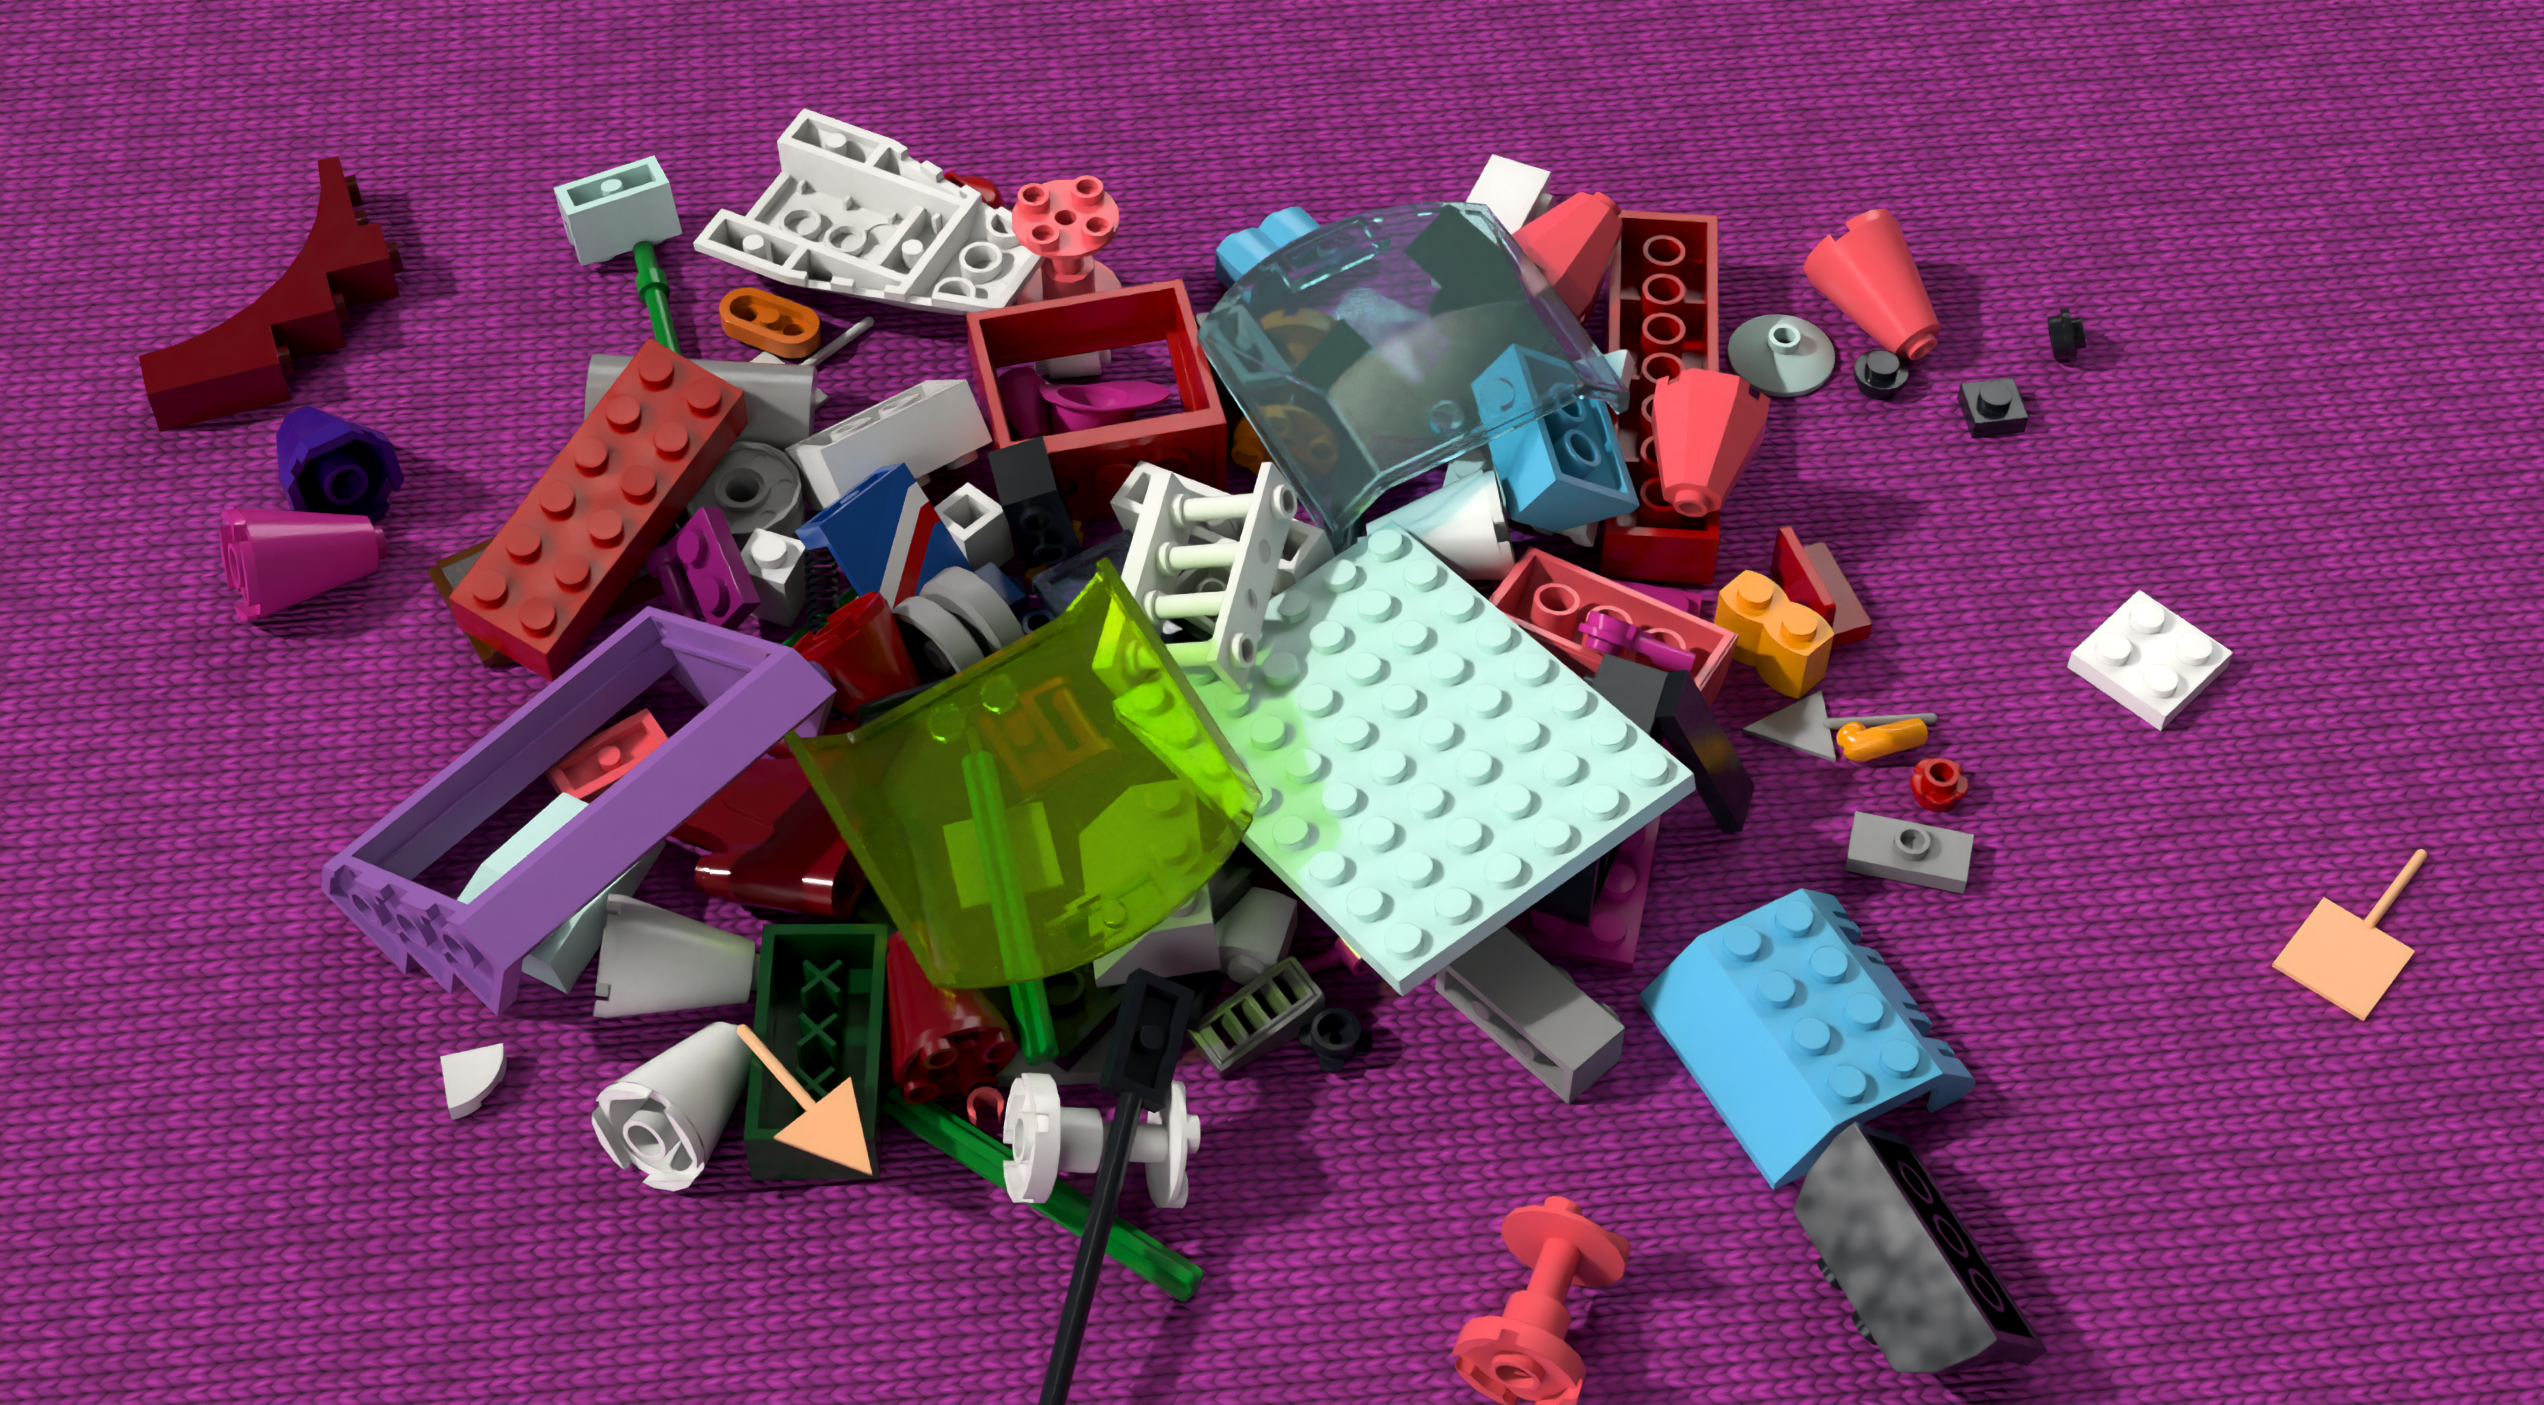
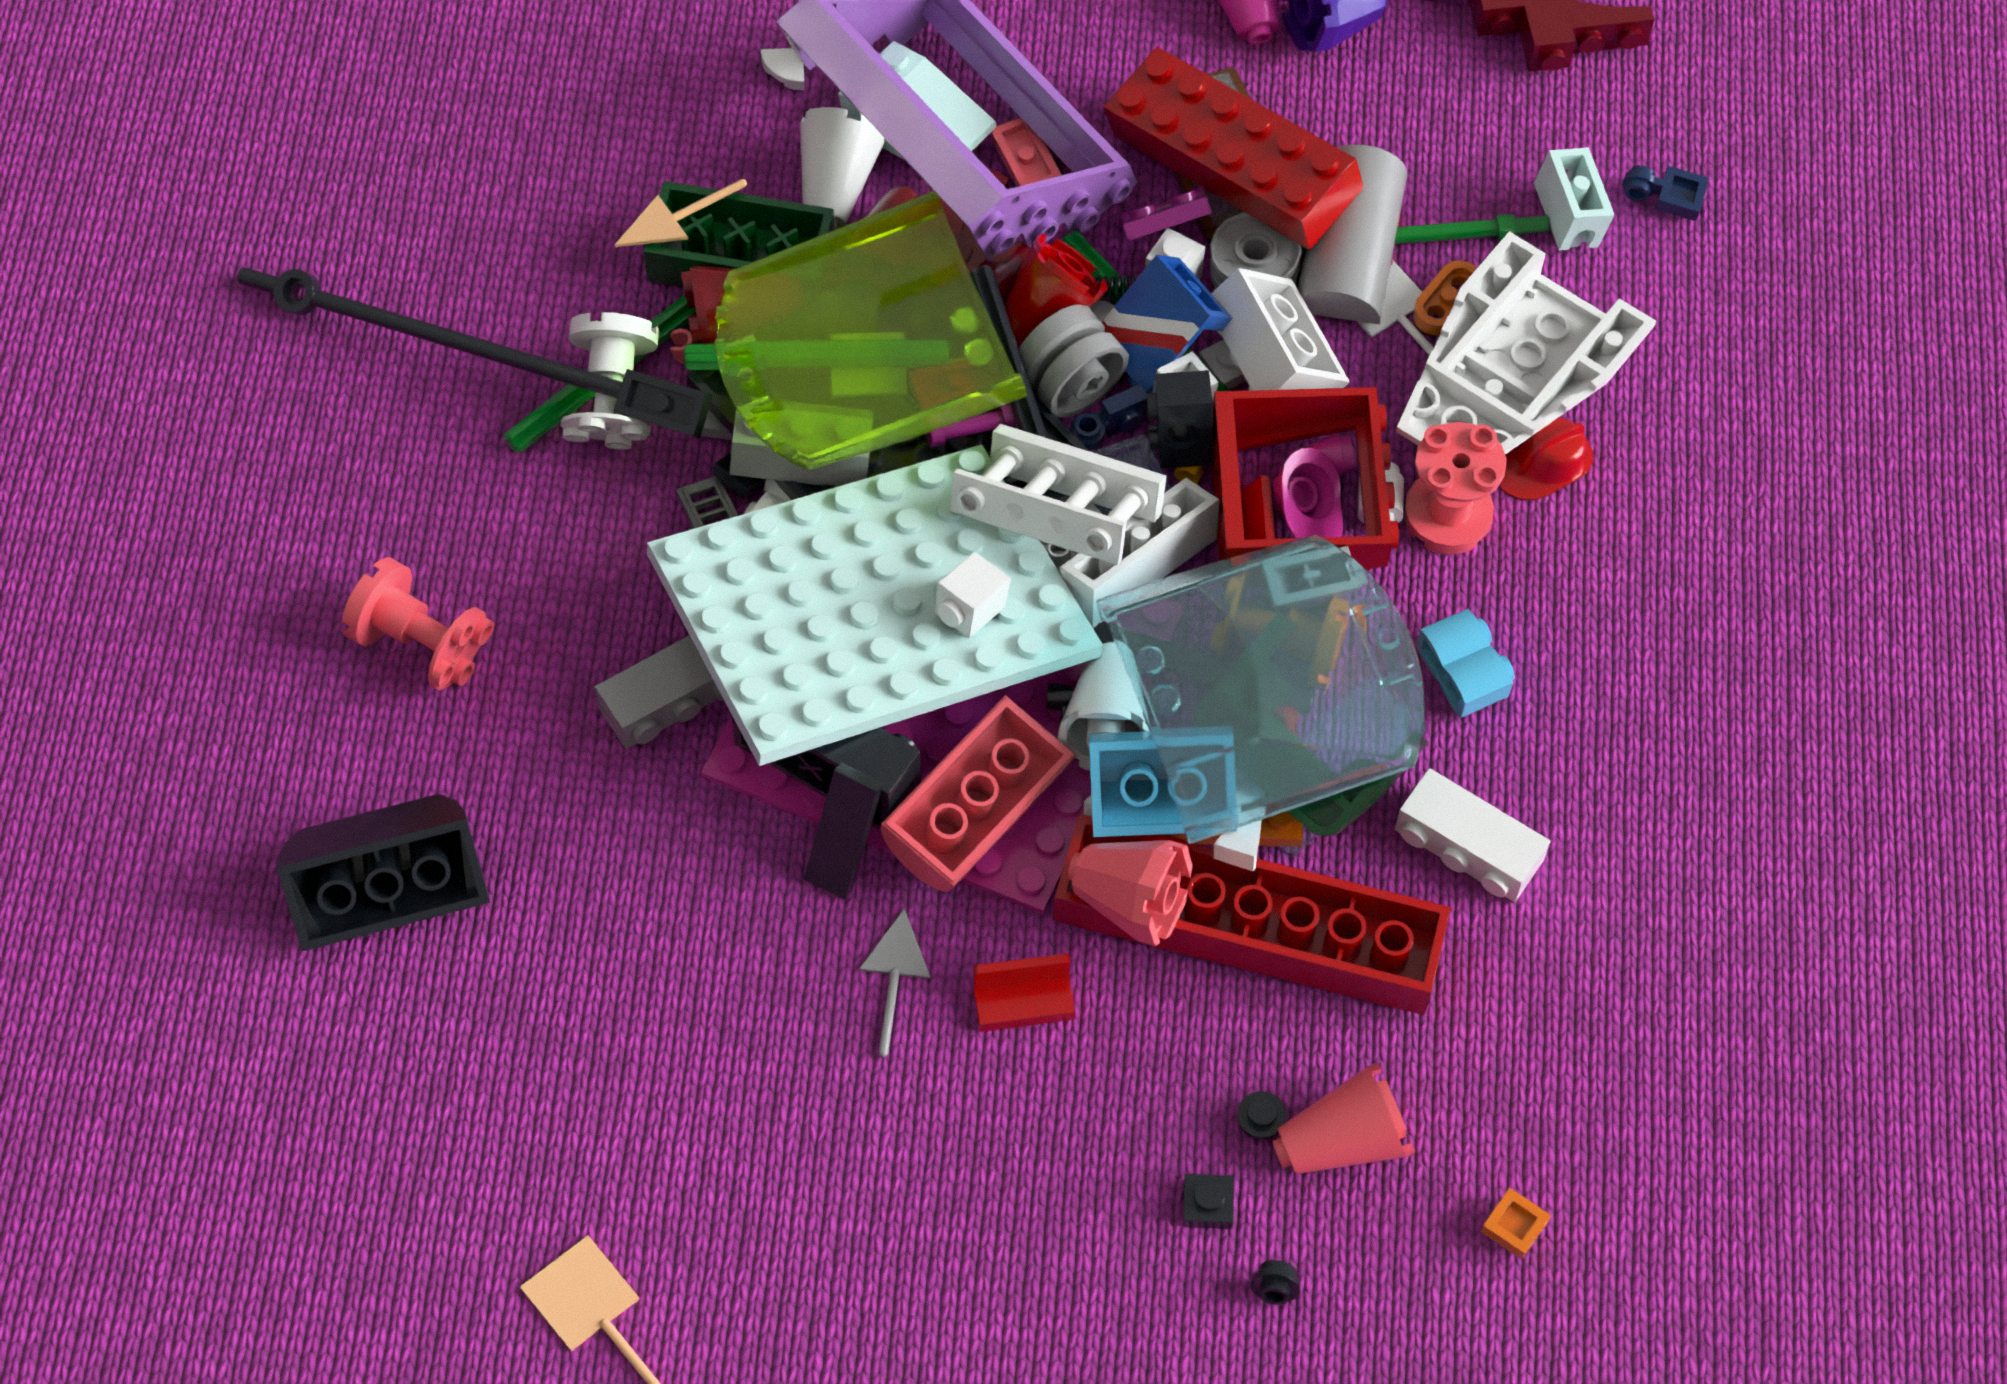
camera: 100 degrees right, 10 degrees up
(579, 139) = (1678, 191): none -> dark blue plate
(675, 1106) = (717, 156): white cone -> none
(1389, 617) = (971, 595): none -> white brick
(1575, 248) = (1383, 845): coral cone -> none
(1611, 634) = (947, 770): dark pink plate -> none
(1776, 636) = (984, 935): light orange brick -> none
(1781, 355) = (1301, 1067): light aqua dish -> none
(1798, 1031) = (603, 865): medium azure slope -> none
(1871, 743) = (859, 1001): light orange arm -> none
(1909, 852) = (753, 992): light grey plate -> none
(1919, 164) = (1515, 1223): none -> orange plate
(1938, 795) = (811, 1043): red plate -> none
(2149, 660) = (903, 1240): white plate -> none

